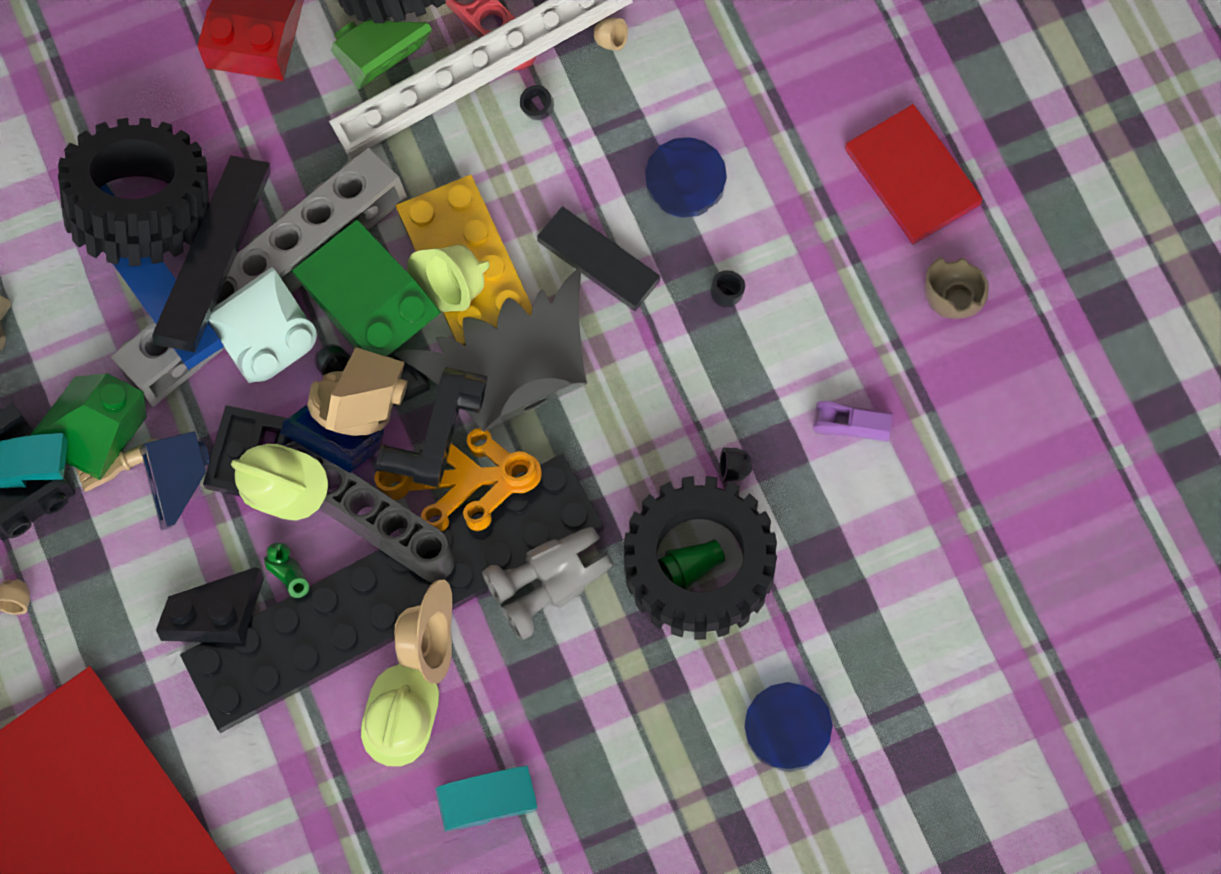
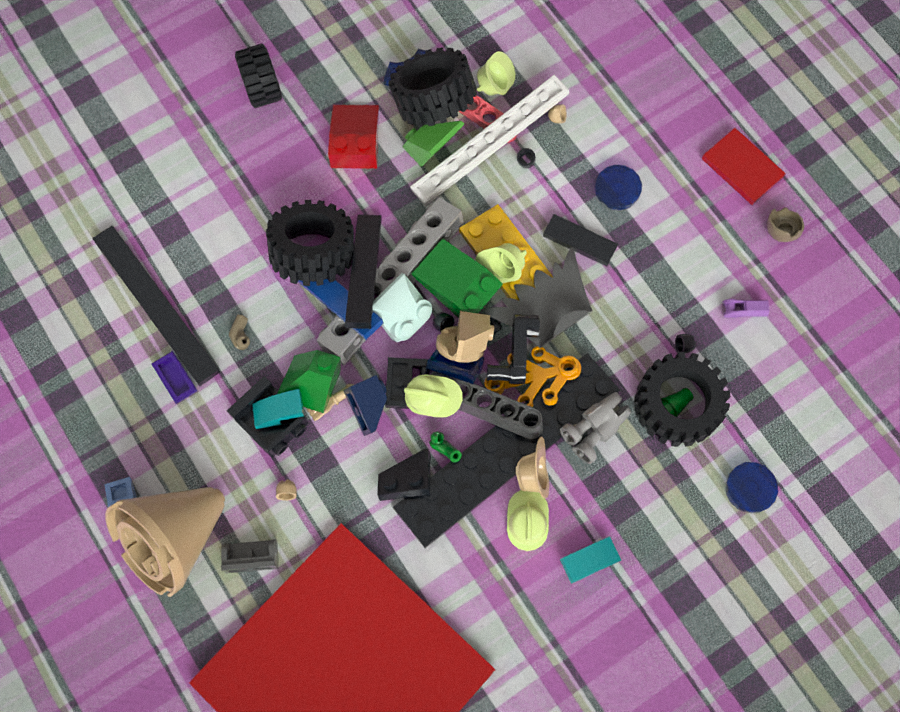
camera: 15 degrees left, 0 degrees up
(731, 287) = (658, 245): black hinge -> none

